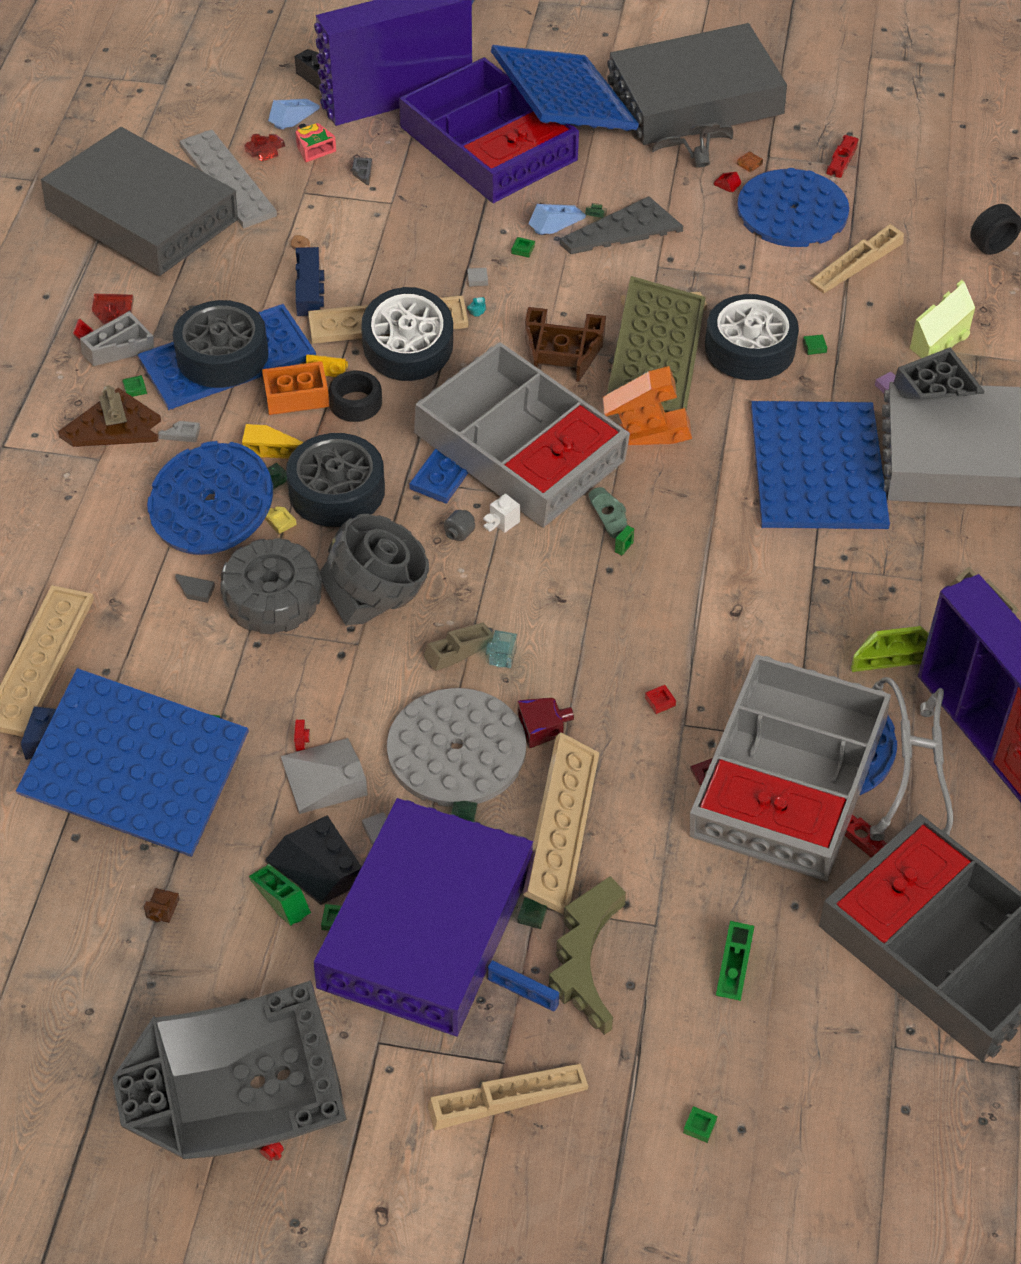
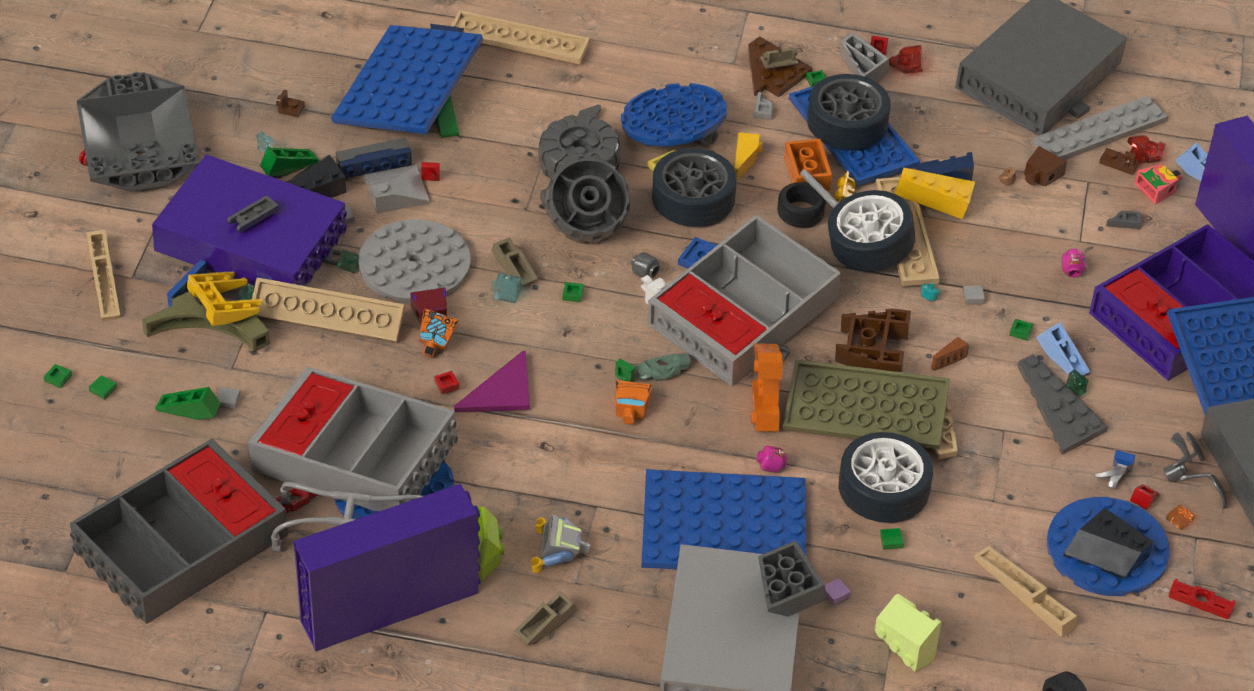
camera: 90 degrees right, 5 degrees down
(245, 923) = (264, 142): none -> clear light blue plate
(275, 795) = (374, 158): none -> dark blue piece
(276, 167) = (1119, 161): none -> reddish brown hinge
(290, 216) = (1044, 167): none -> reddish brown torso
(340, 286) = (936, 191): none -> yellow wedge
(347, 370) = (813, 182): none -> light grey bar
(433, 203) = (1073, 263): none -> dark pink head
(435, 887) = (254, 213): none -> dark grey hinge
(498, 593) = (572, 292): none -> green tile
(568, 293) = (950, 354): none -> dark orange slope
(590, 706) = (436, 331): none -> torso
(595, 923) = (219, 312): none -> yellow wedge
(660, 648) = (502, 391): none -> magenta tile
(668, 534) = (632, 400): none -> orange torso
(704, 187) = (1123, 463): none -> piece
(712, 921) = (228, 397): none -> light grey tile
(713, 1066) = (102, 387): none -> green tile
(733, 423) = (772, 459): none -> dark pink head
(807, 195) = (1110, 545): none -> black wedge
(883, 584) = (559, 542): none -> torso

